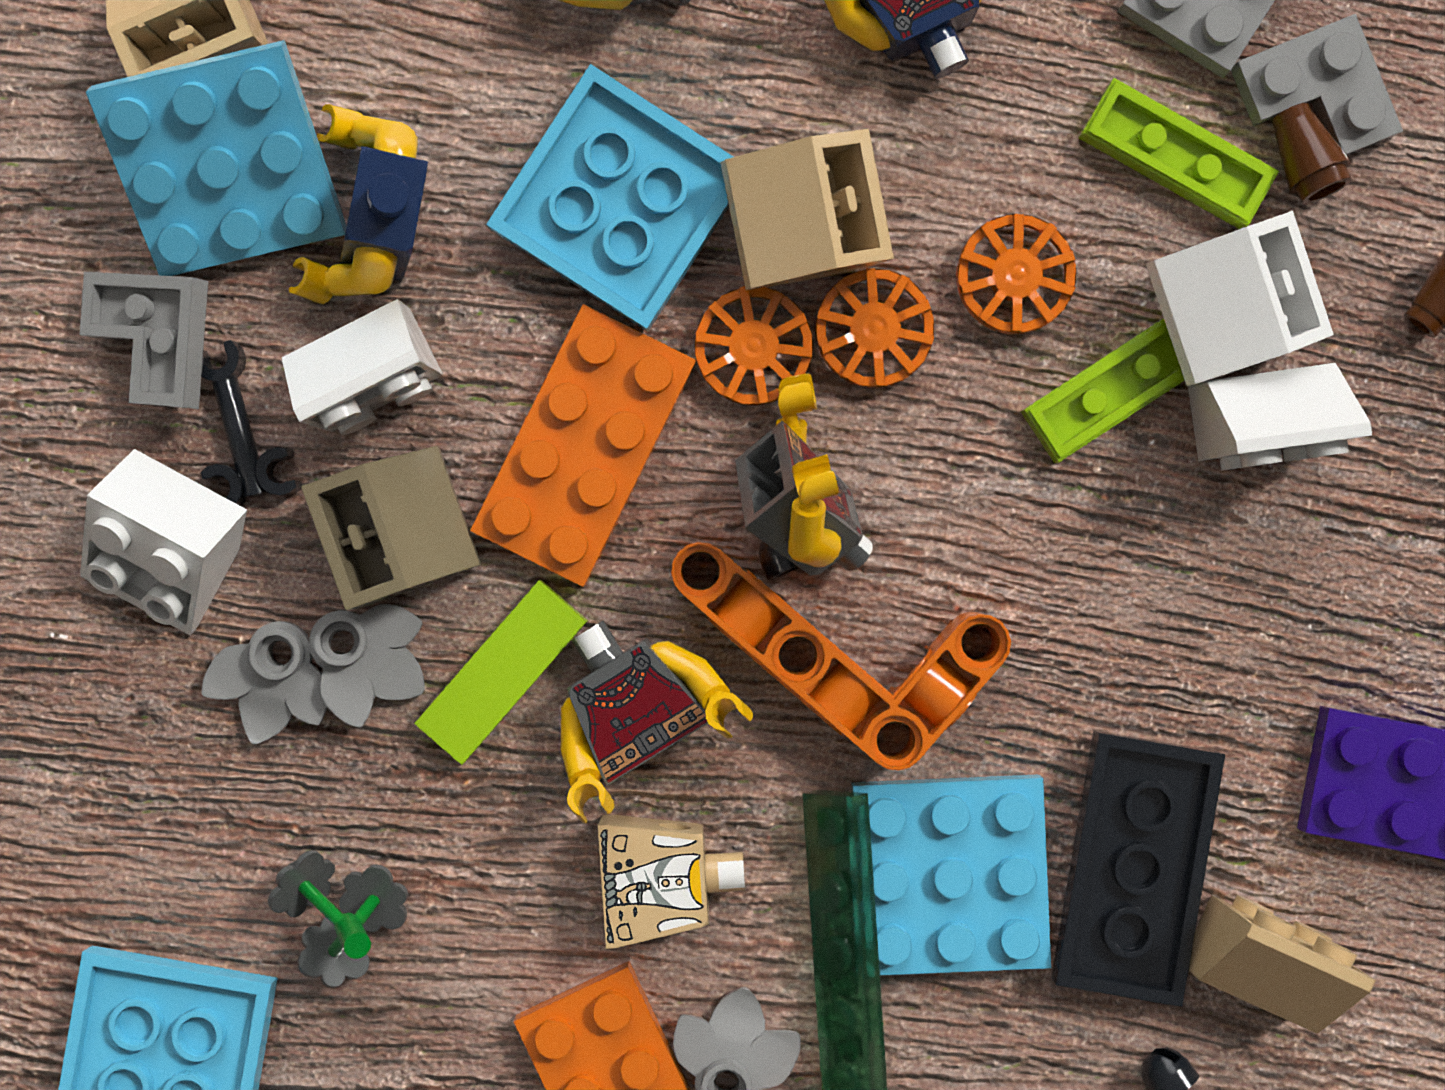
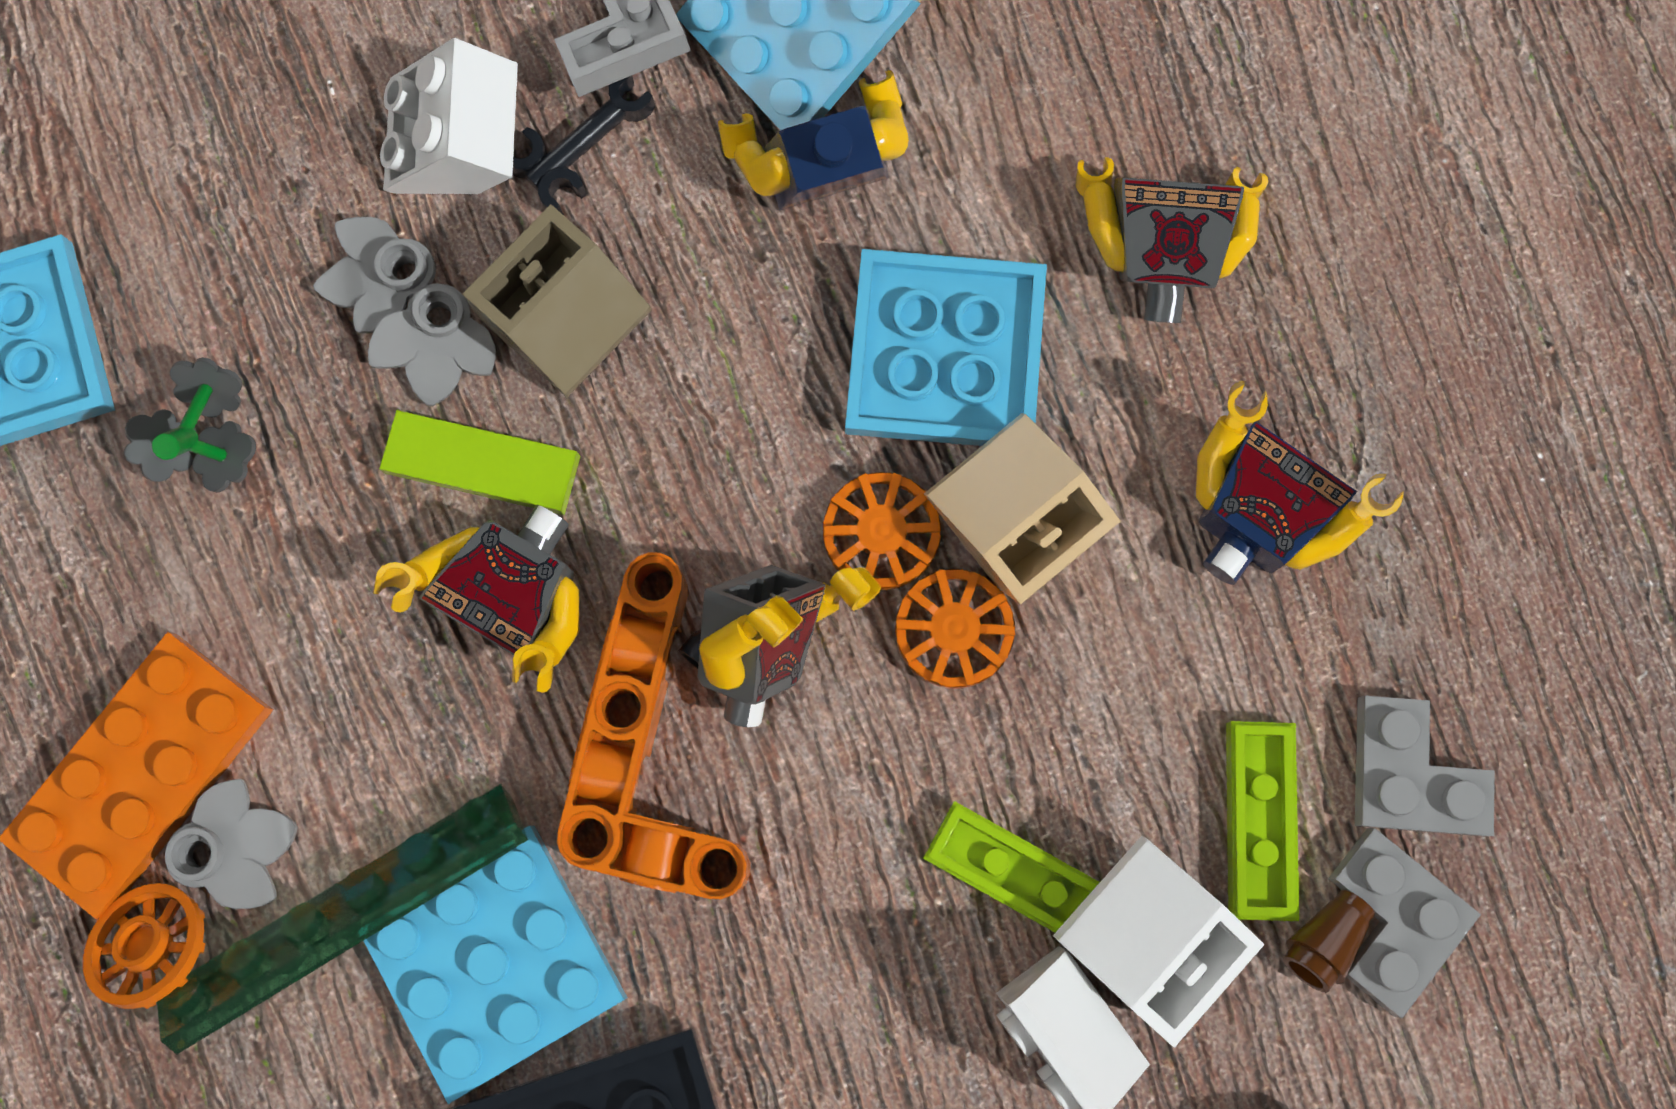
camera: 65 degrees right, 10 degrees down
(360, 369) = (680, 209): white slope -> none
(583, 445) = (715, 431): orange plate -> none
(659, 877) = (359, 691): torso -> none
(1016, 273) = (1072, 729): orange wheel -> none

